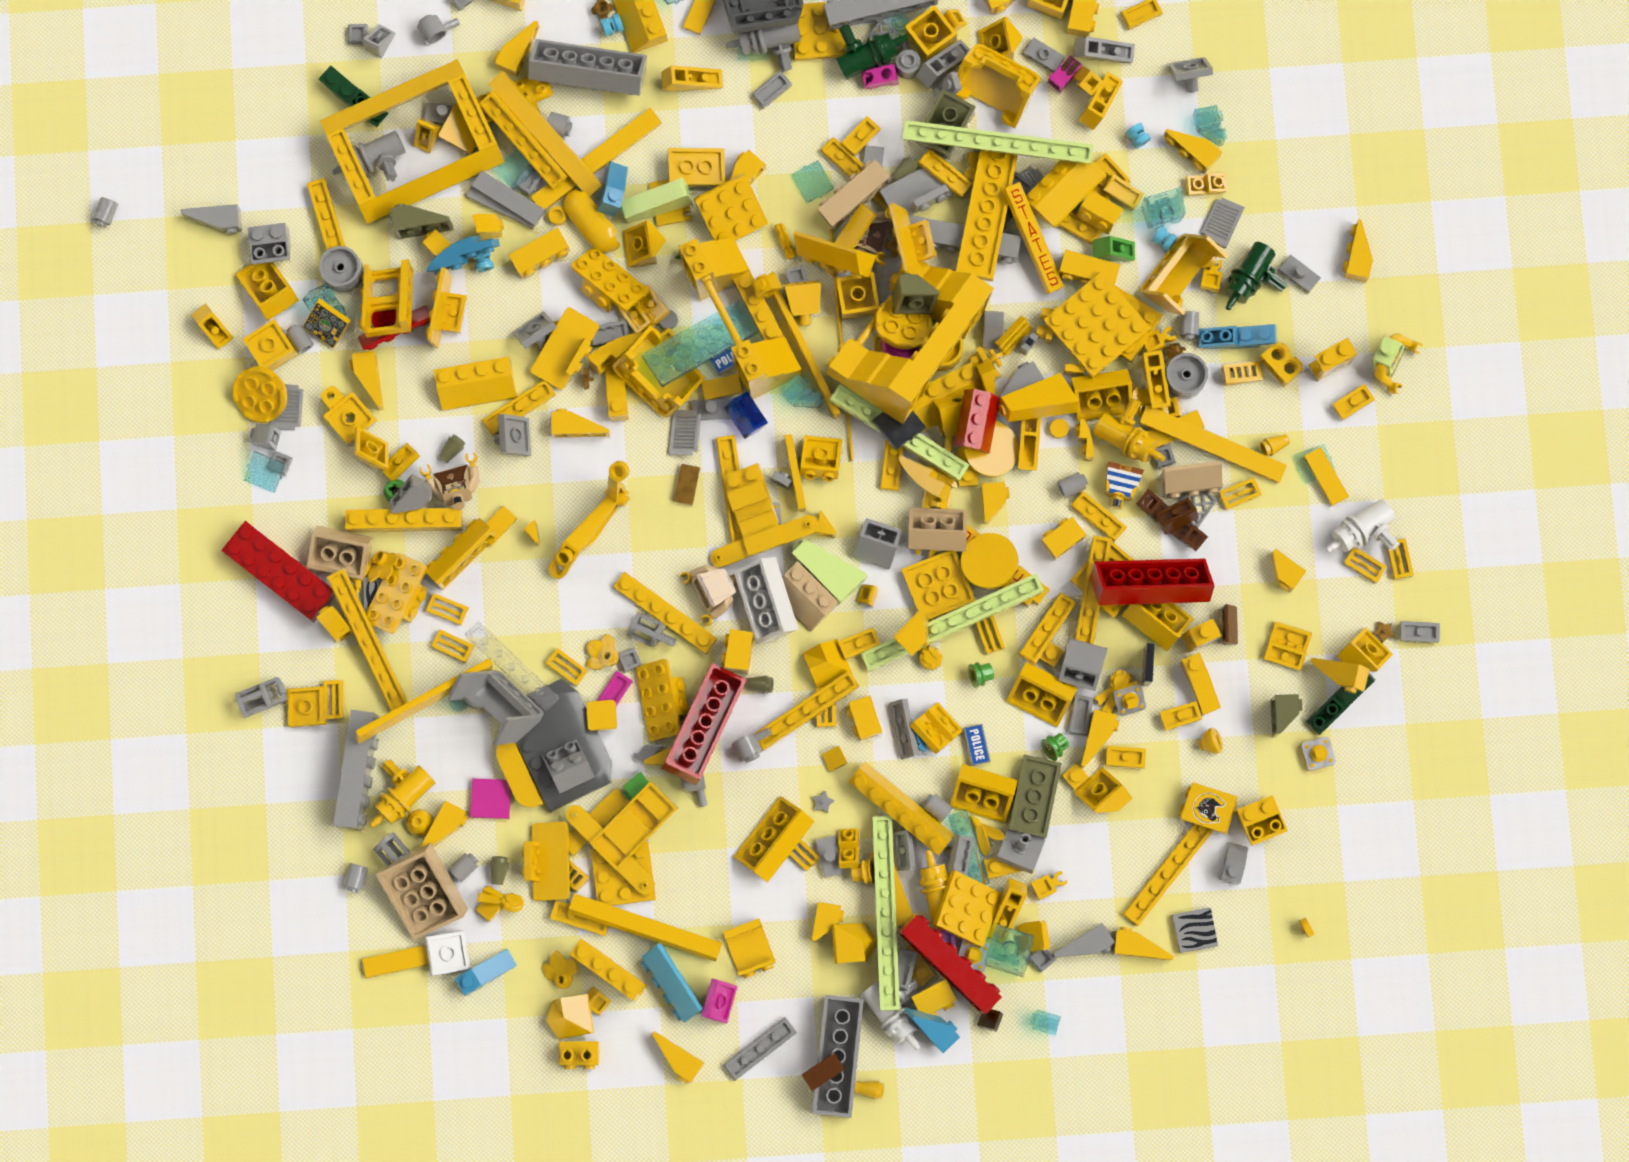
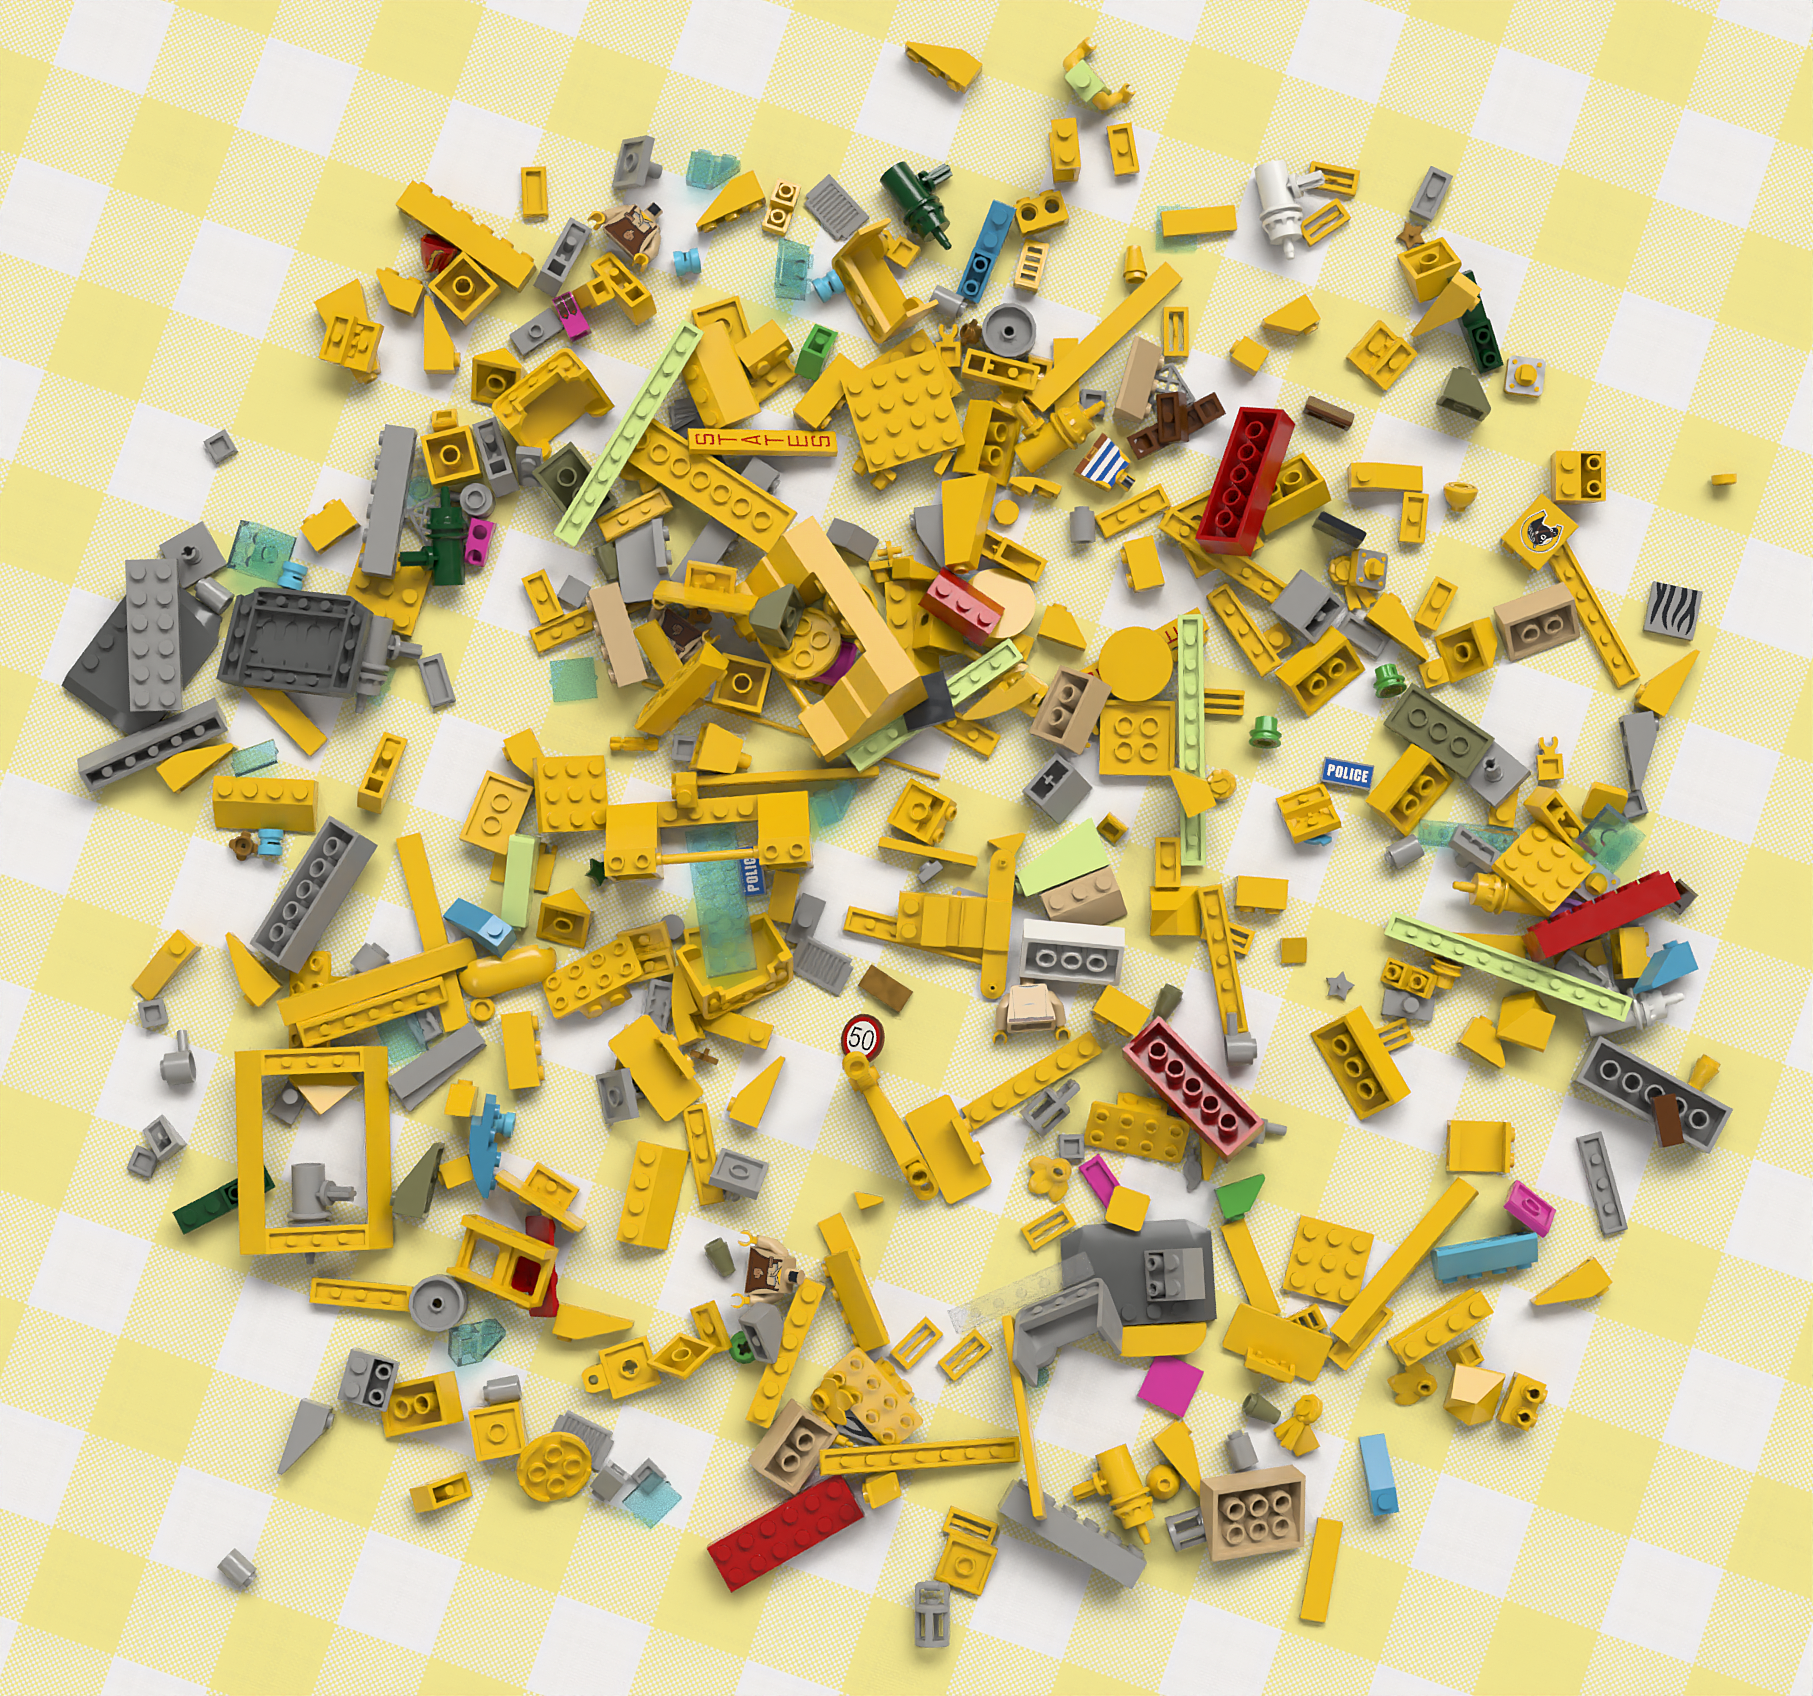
camera: 75 degrees left, 5 degrees up
(326, 323) = (500, 1348): tile -> none
(355, 877) = (1199, 1586): light grey brick -> none
(426, 135) = (311, 1128): yellow slope -> none
(447, 953) = (1336, 1512): white tile -> none
(592, 574) = (949, 1148): none -> yellow bracket
(626, 832) = (1284, 1236): yellow piece -> none
(644, 482) = (863, 1034): none -> piece
(745, 415) = (833, 881): clear blue brick -> none
(901, 808) = (1389, 895): yellow brick -> none
(904, 733) = (1299, 854): light grey plate -> none
(904, 850) = (1439, 913): light grey plate -> none
(983, 831) = (1454, 810): yellow piece -> none
(1013, 335) = (870, 517): yellow tile -> none
(1028, 342) = (887, 504): light grey plate -> none
(1045, 1022) = (1710, 833): clear light blue brick -> none
(1123, 192) = (749, 310): yellow tile -> none
(1143, 89) = (632, 230): none -> torso
(1144, 834) = (1537, 621): none -> tan slope
(1201, 635) = (1329, 450): yellow torso -> none
(1234, 863) = (1614, 530): light grey slope -> none
(1245, 550) = (1248, 355): none -> yellow brick
(1299, 274) = (939, 144): light grey tile -> none

